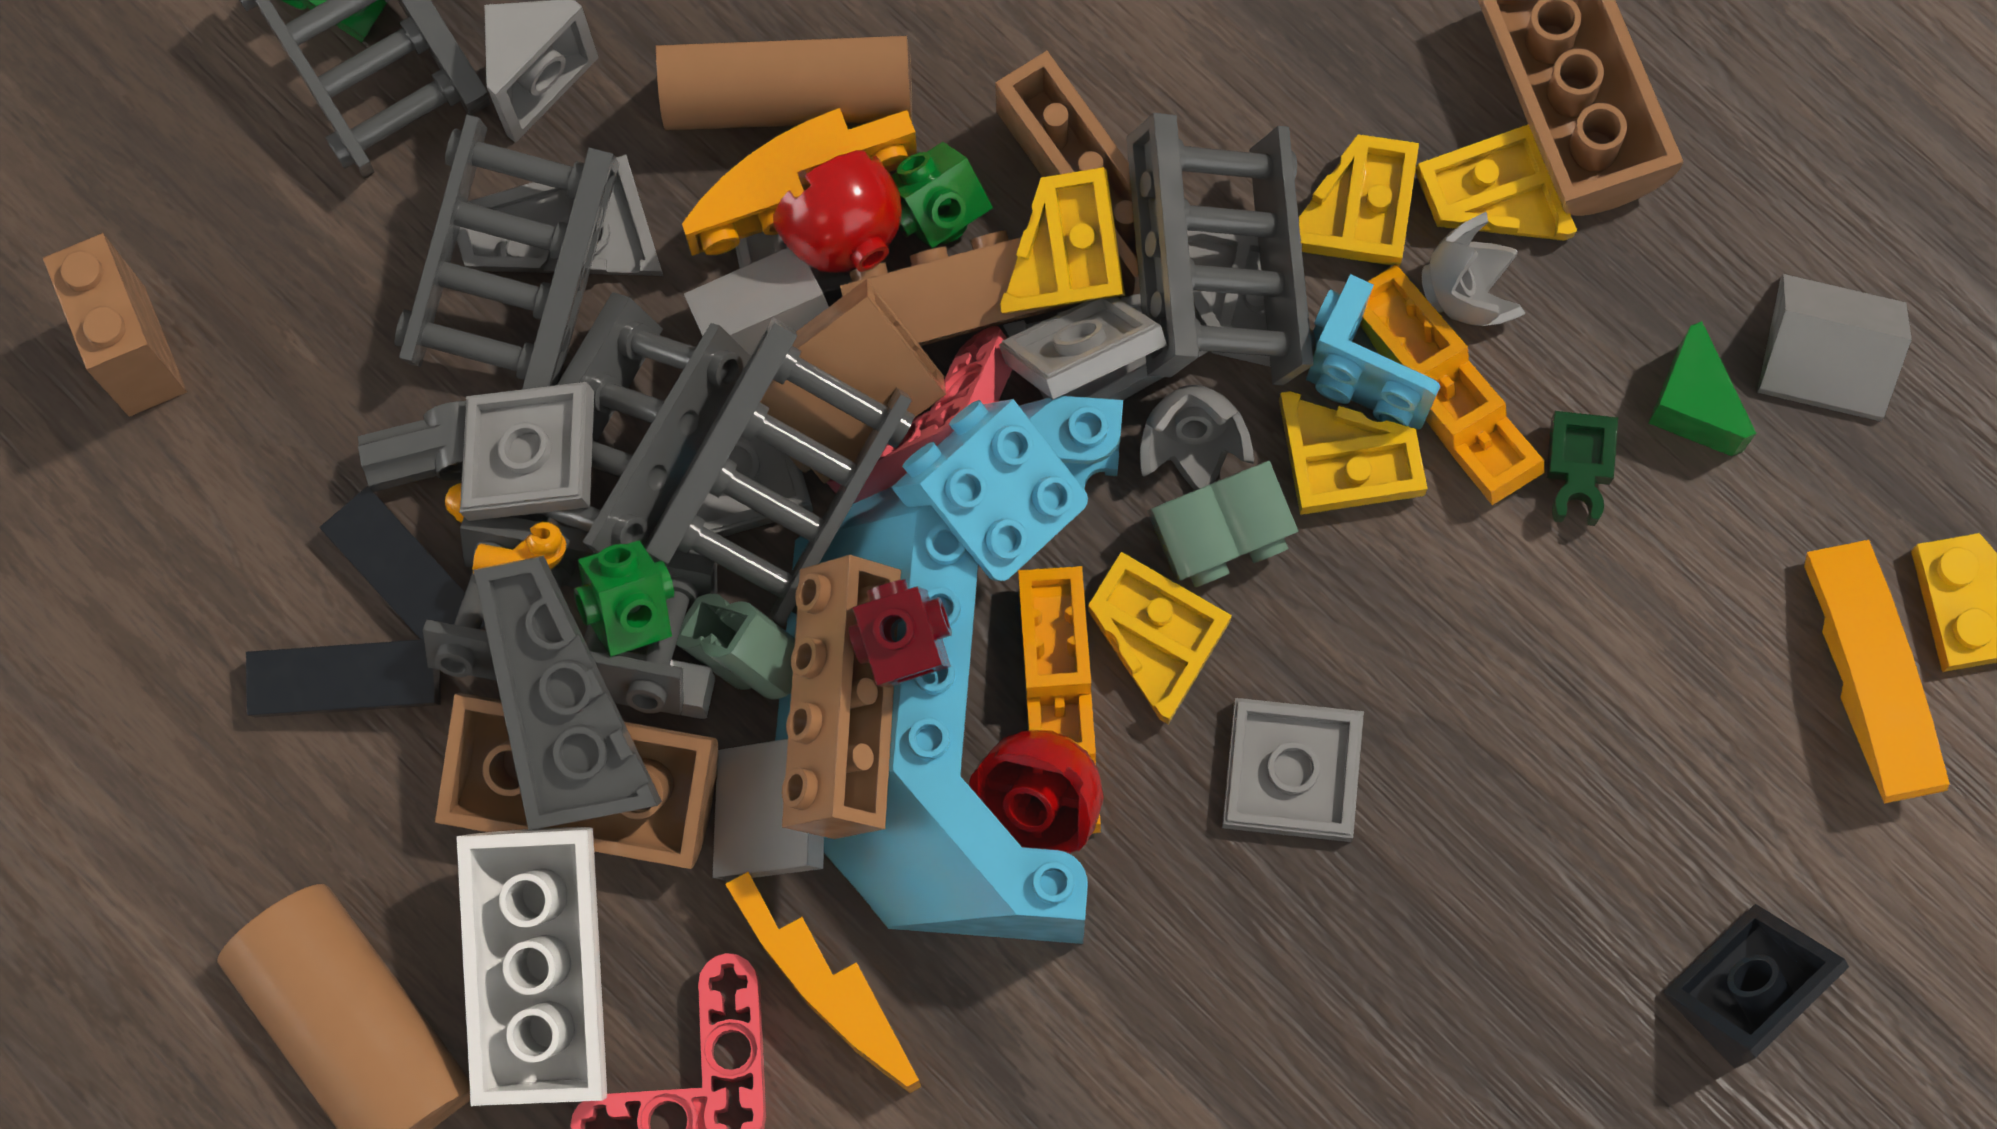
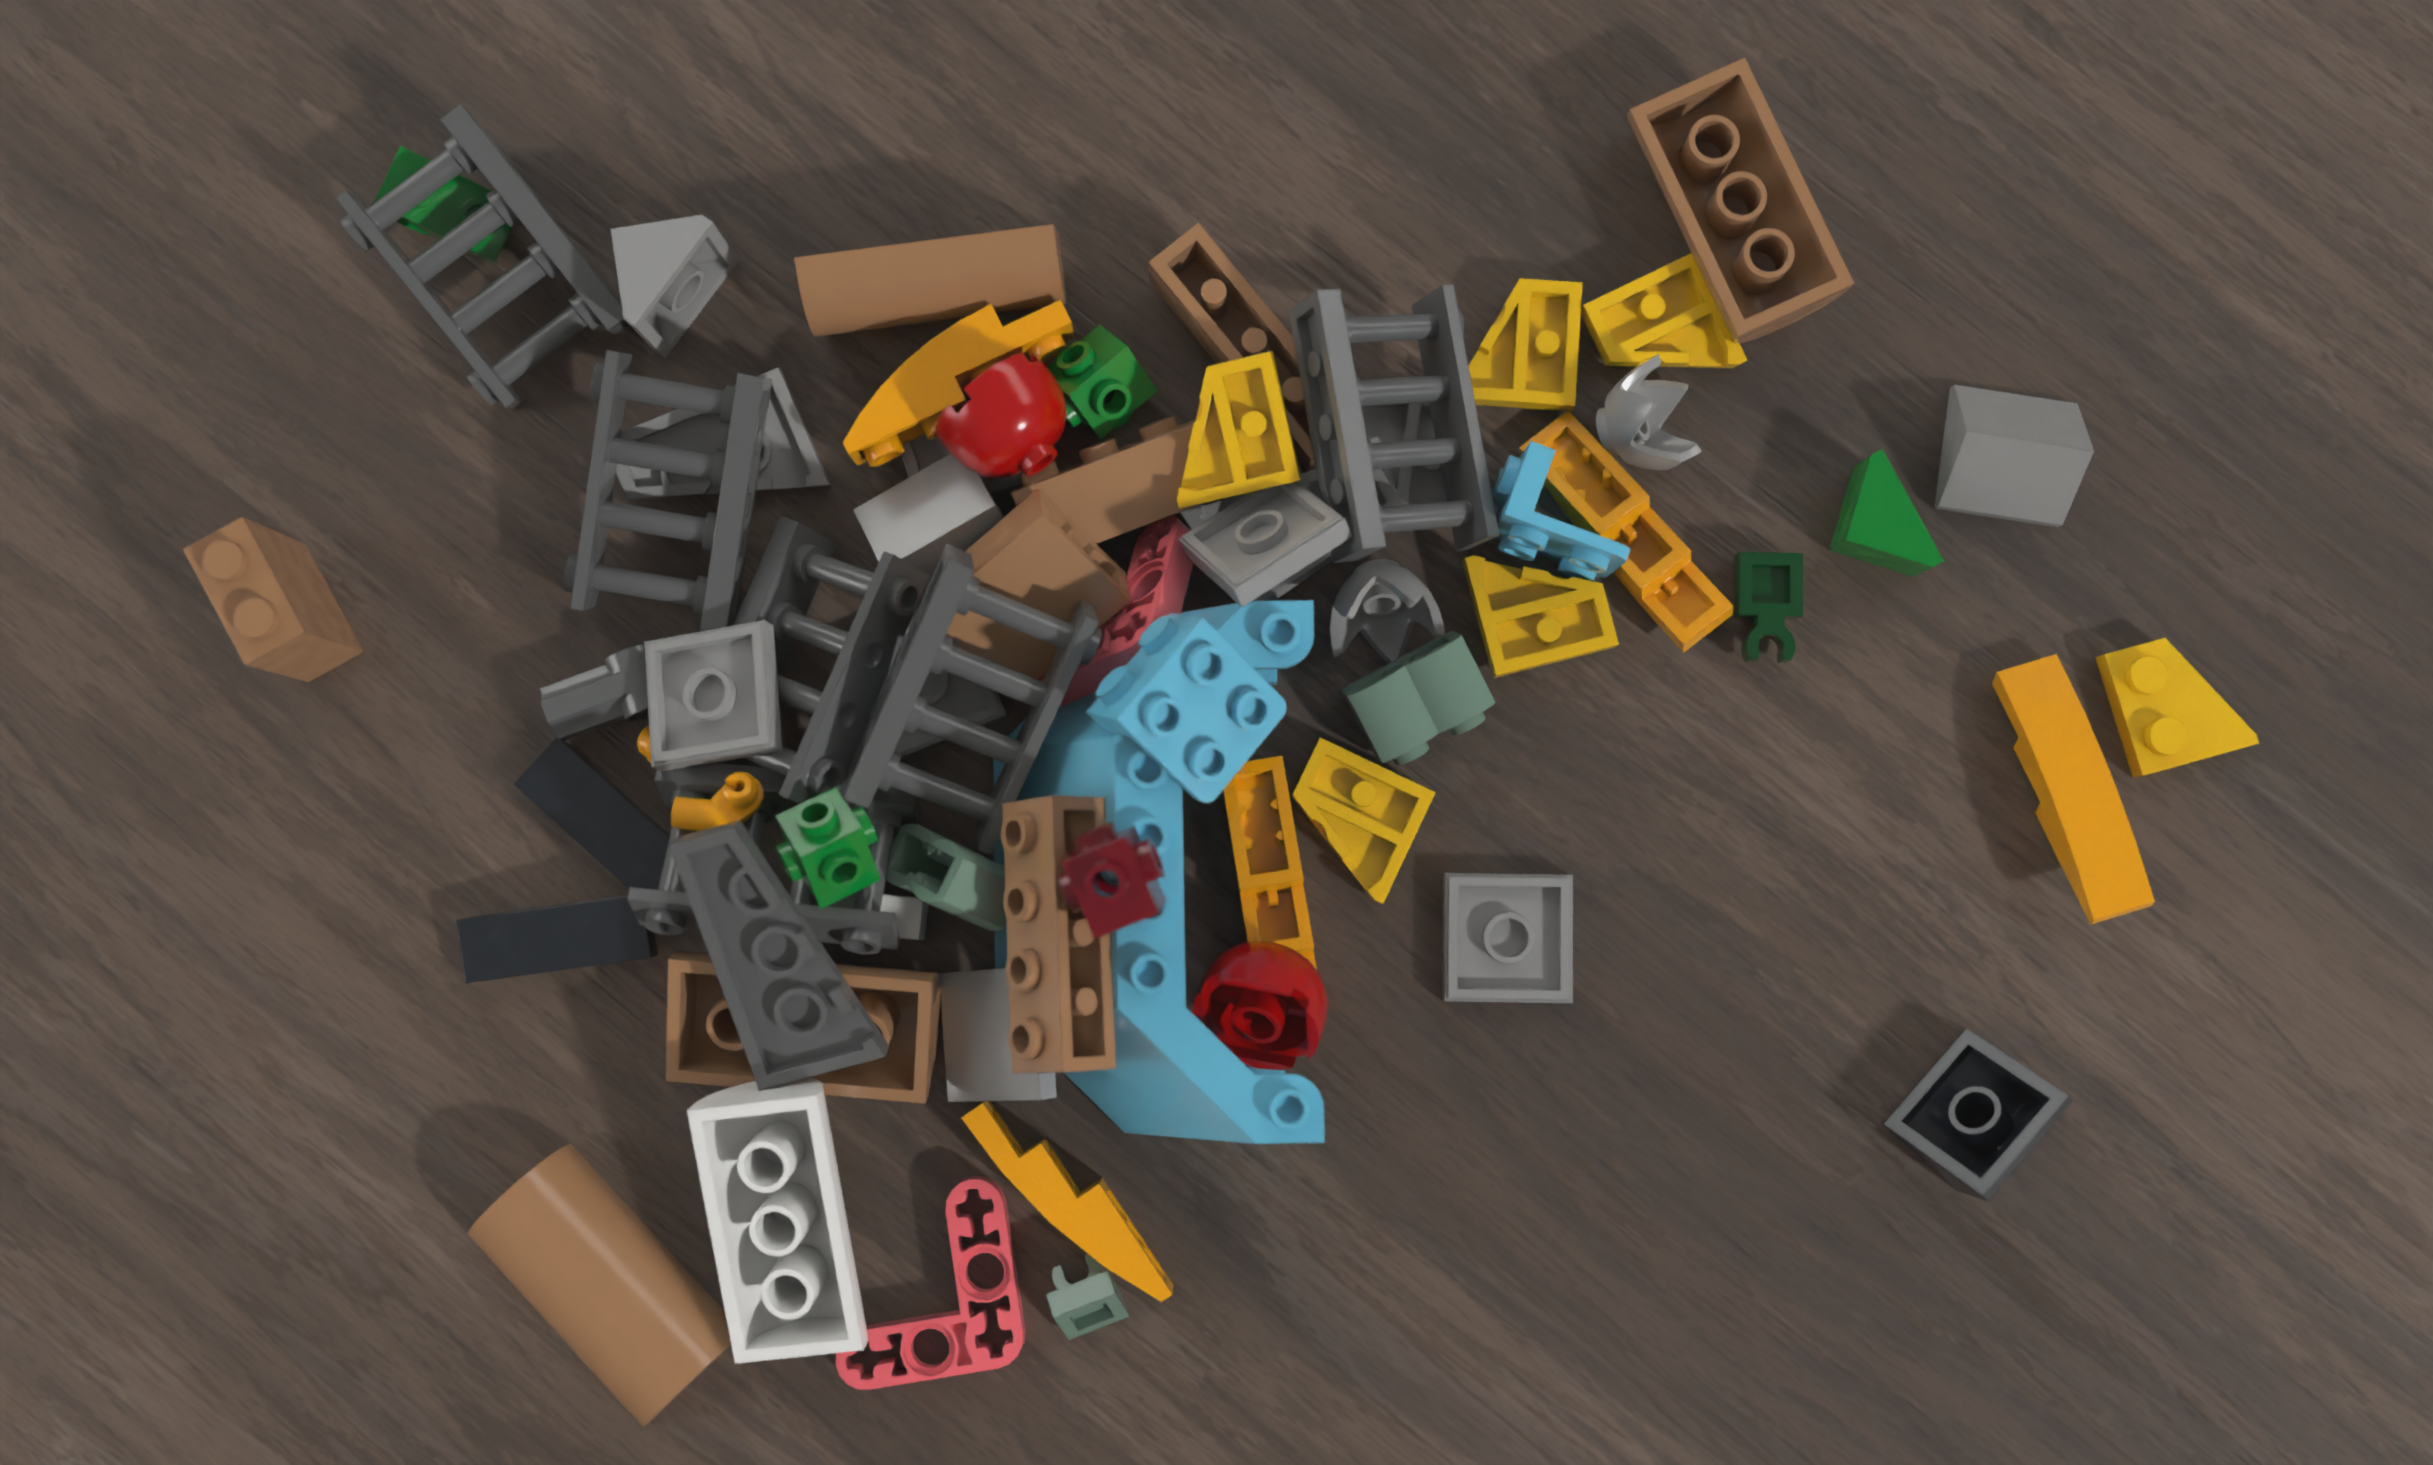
camera: 10 degrees left, 10 degrees up
(831, 1088) = (1087, 1303): none -> sand green tile

